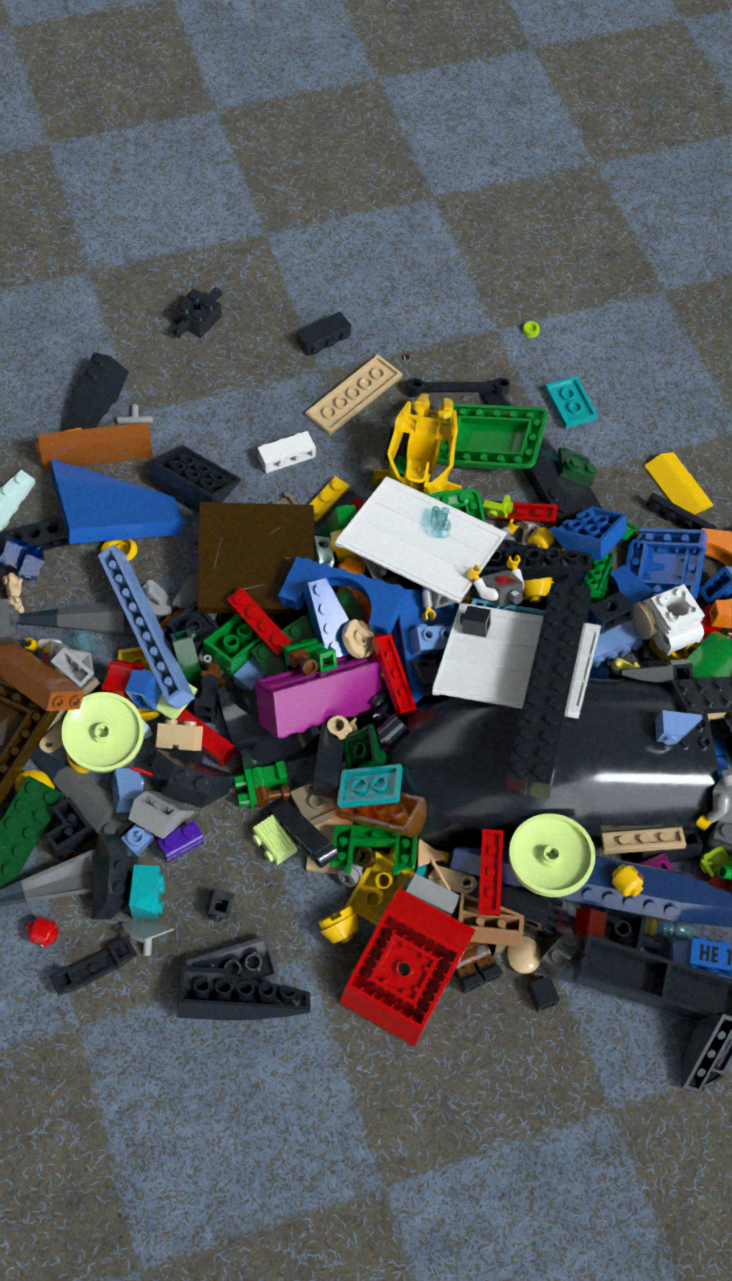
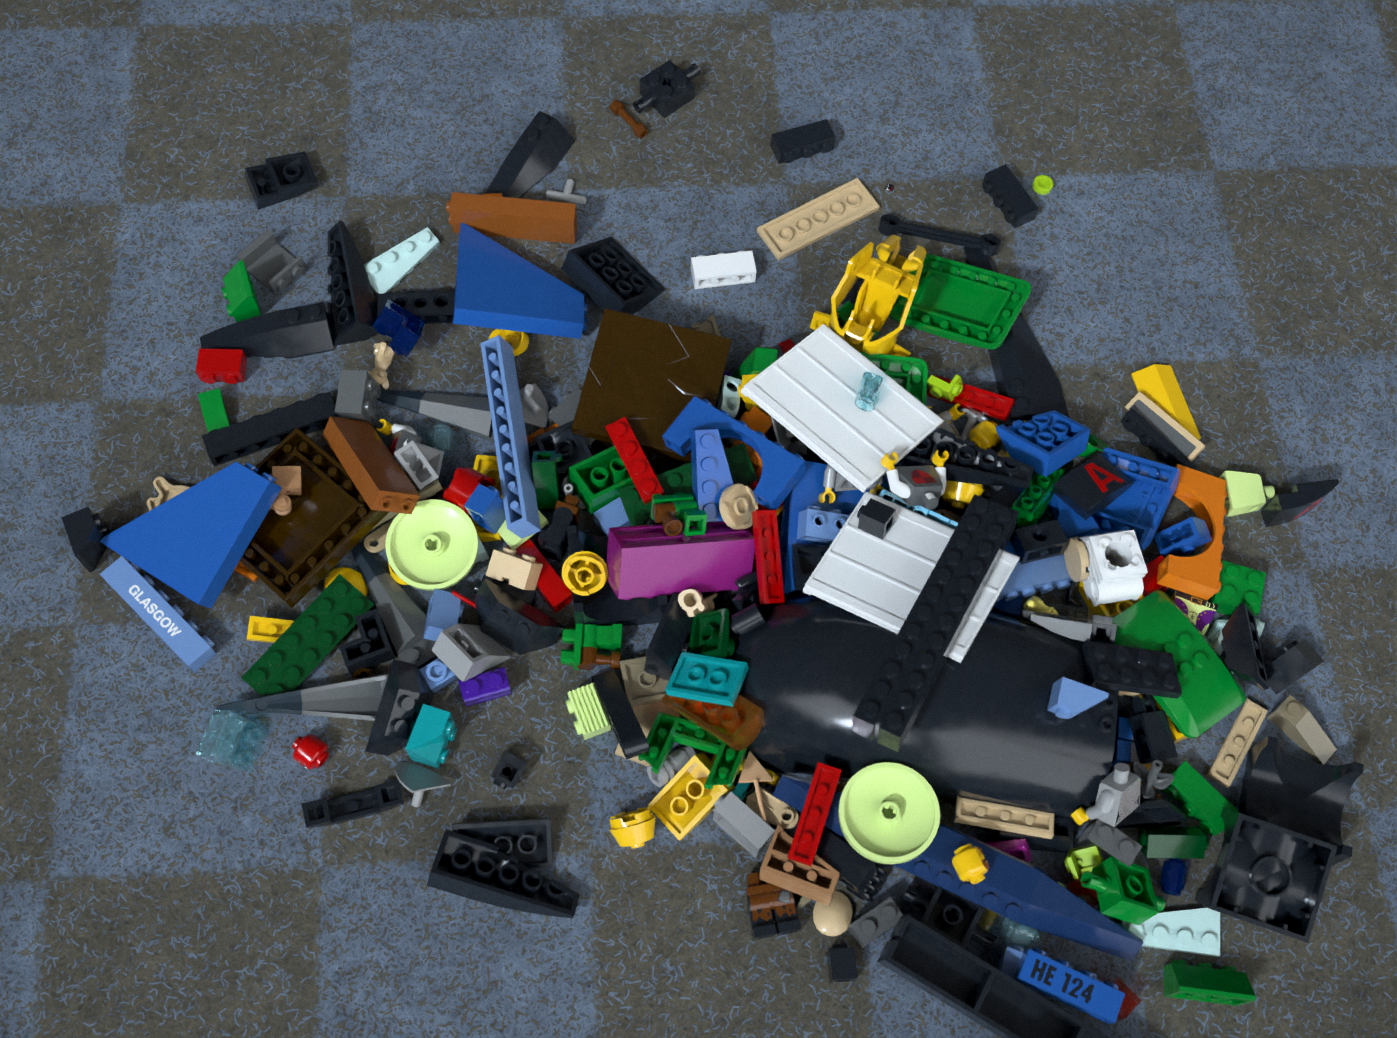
camera: 15 degrees right, 5 degrees up
(158, 337) = (618, 108): none -> reddish brown bar
(241, 724) = (584, 573): none -> yellow cone
(328, 498) = (754, 333): yellow plate -> none
(360, 856) = (685, 763): dark brown bush -> none
(414, 935) = (718, 873): red slope -> none
(507, 344) = (1009, 196): none -> black brick
(571, 402) = (1066, 280): teal plate -> none
(576, 467) = (1049, 358): dark green slope -> none
(590, 922) = (915, 900): clear red brick -> none
(639, 560) = (1091, 486): none -> black slope
(684, 500) = (1166, 426): none -> tile

